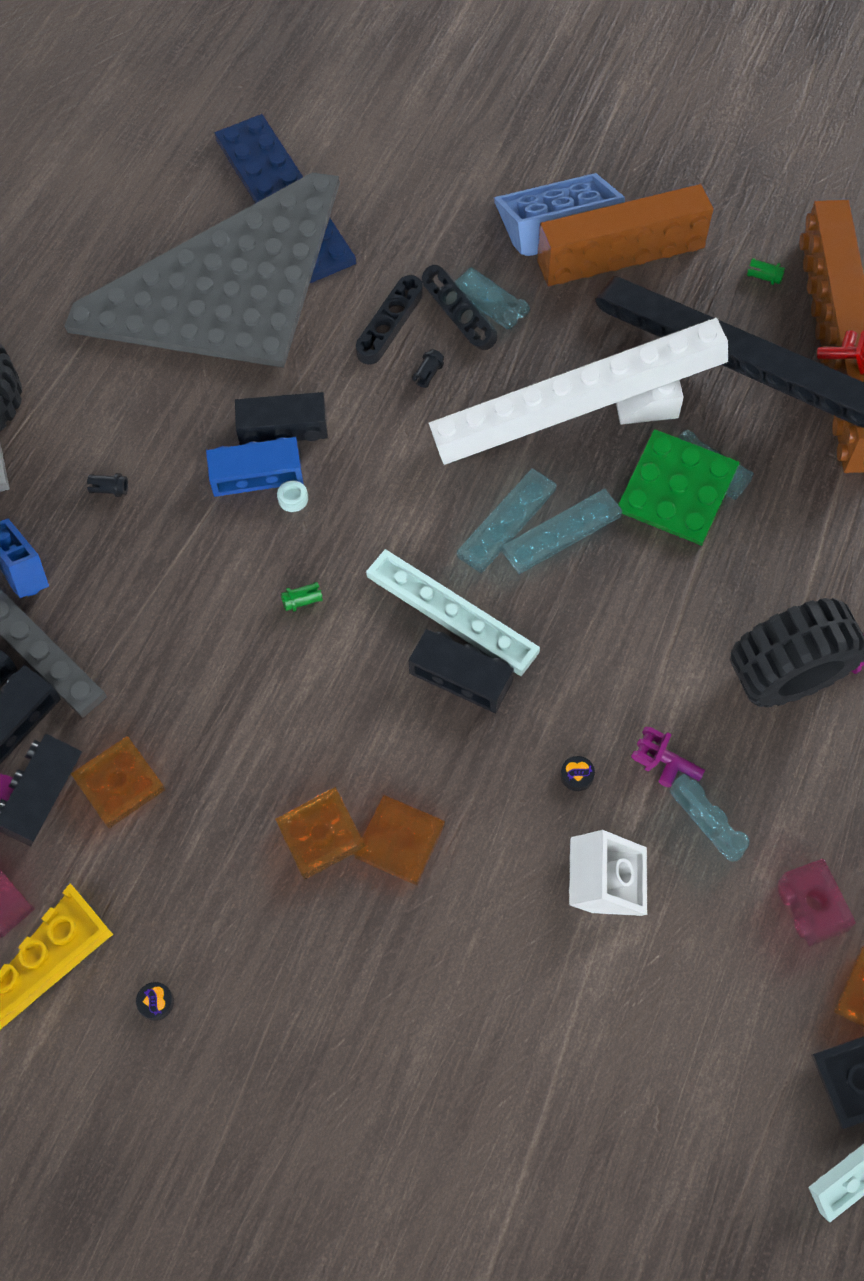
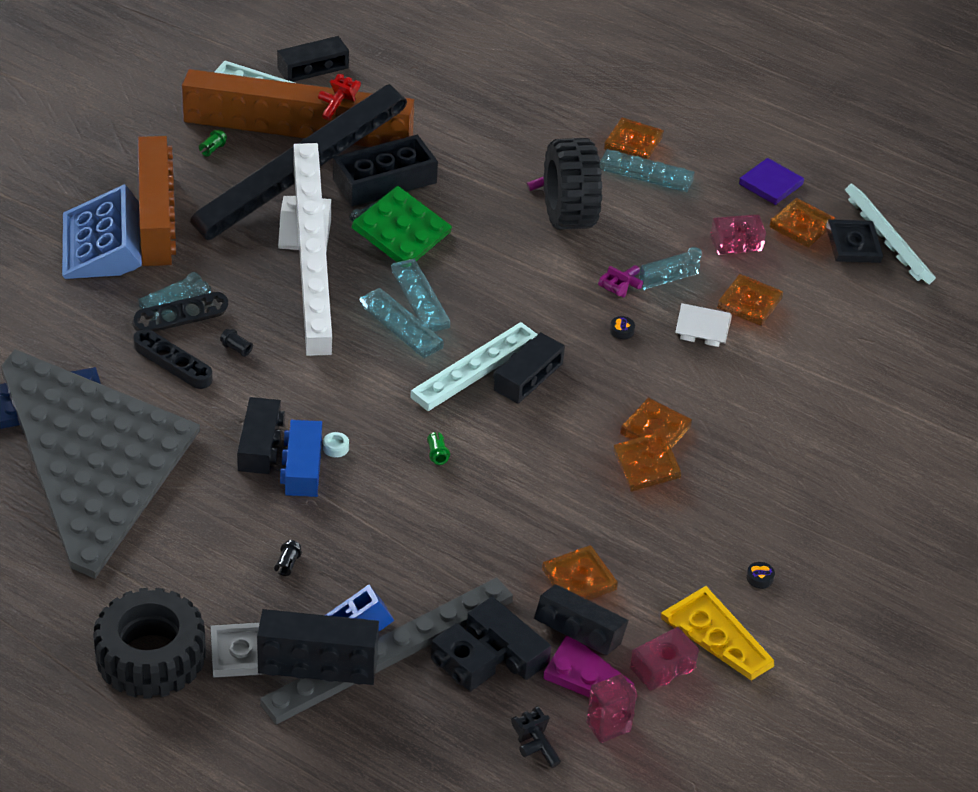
camera: 85 degrees left, 20 degrees down
(681, 935) = (750, 299): none -> clear orange plate
(774, 446) = (380, 168): none -> black brick

